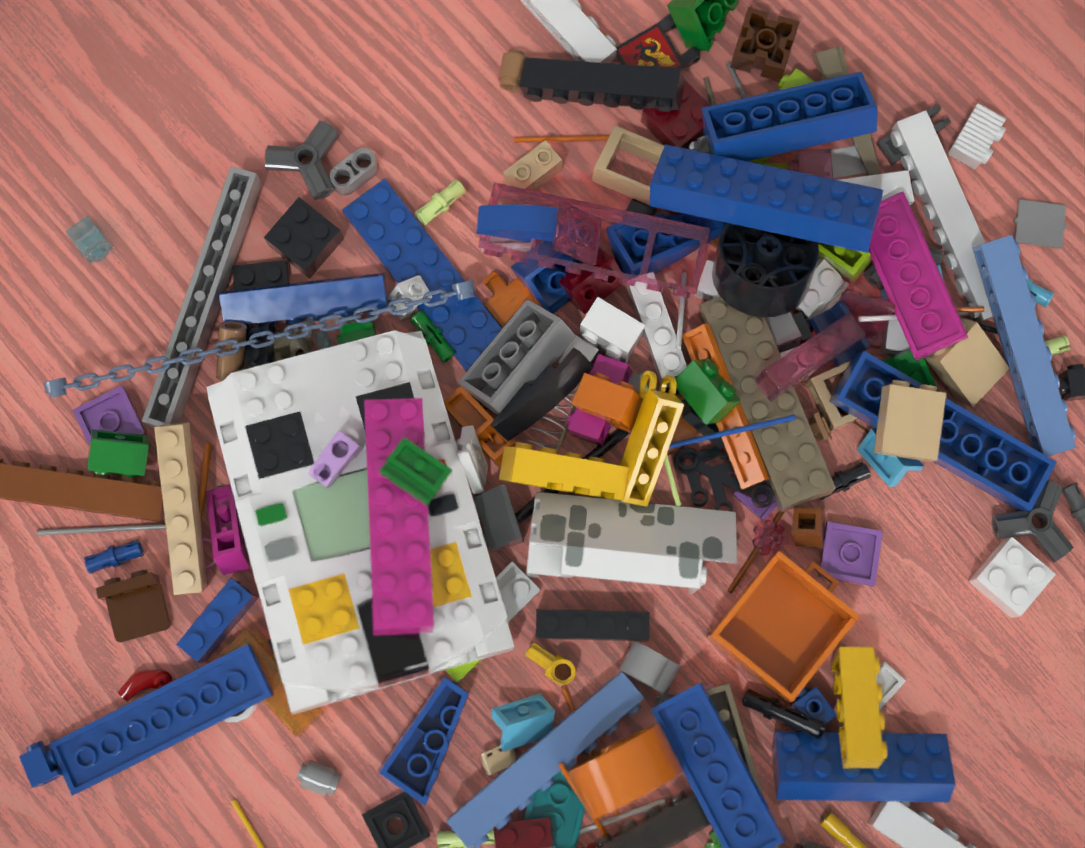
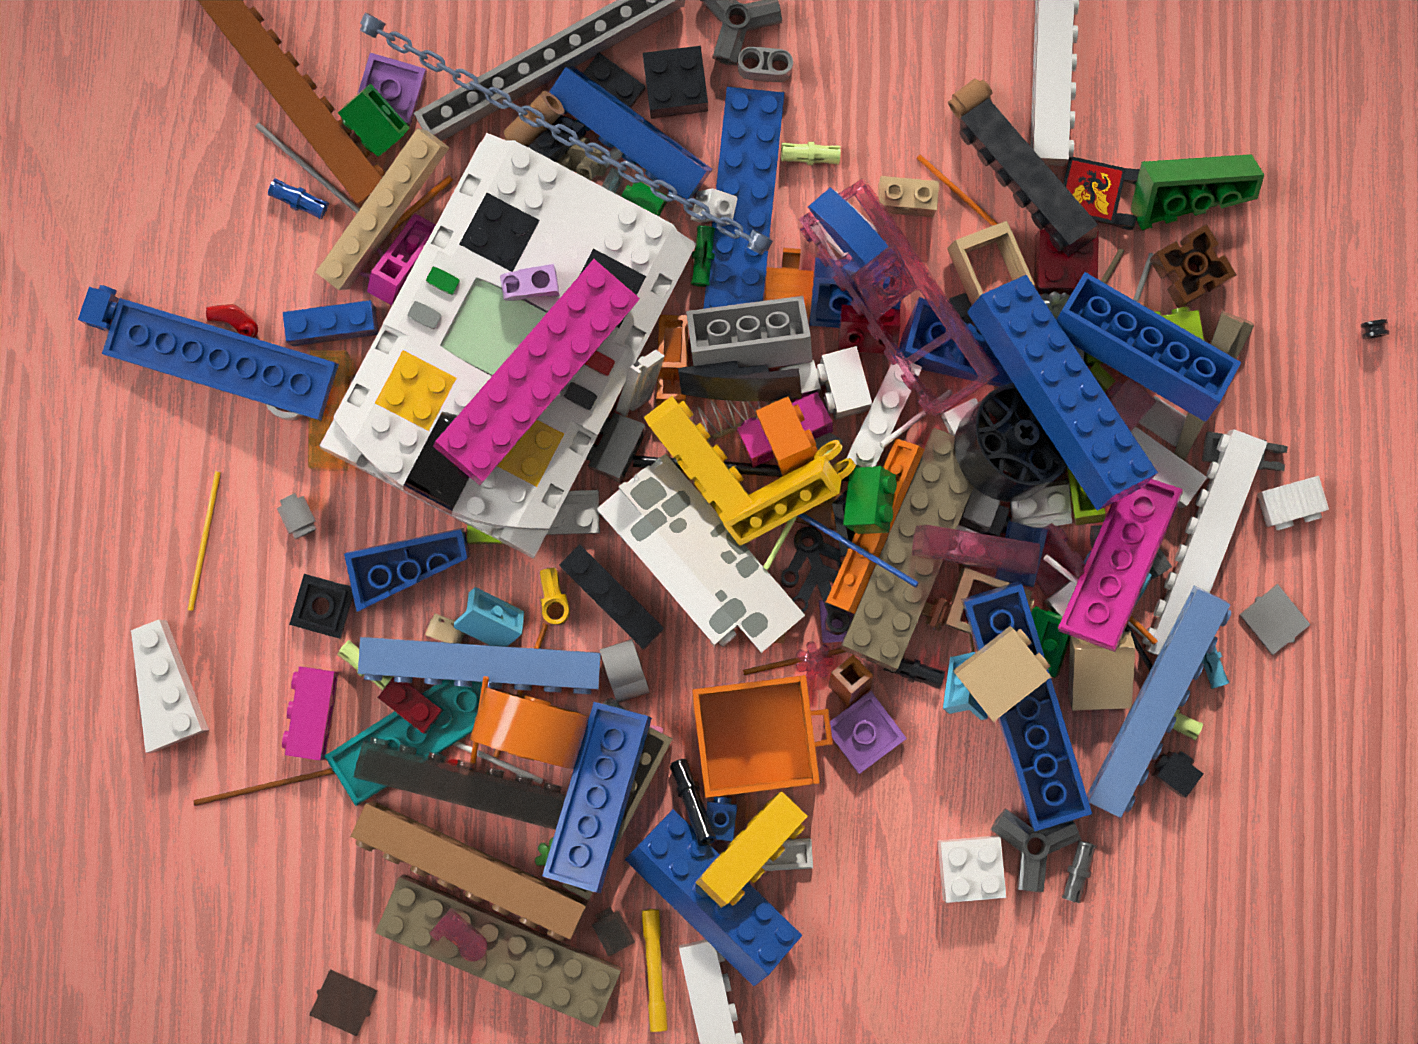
camera: 40 degrees right, 5 degrees up
(135, 605) = (279, 252): reddish brown bracket -> none
(415, 471) = (579, 351): green plate -> none

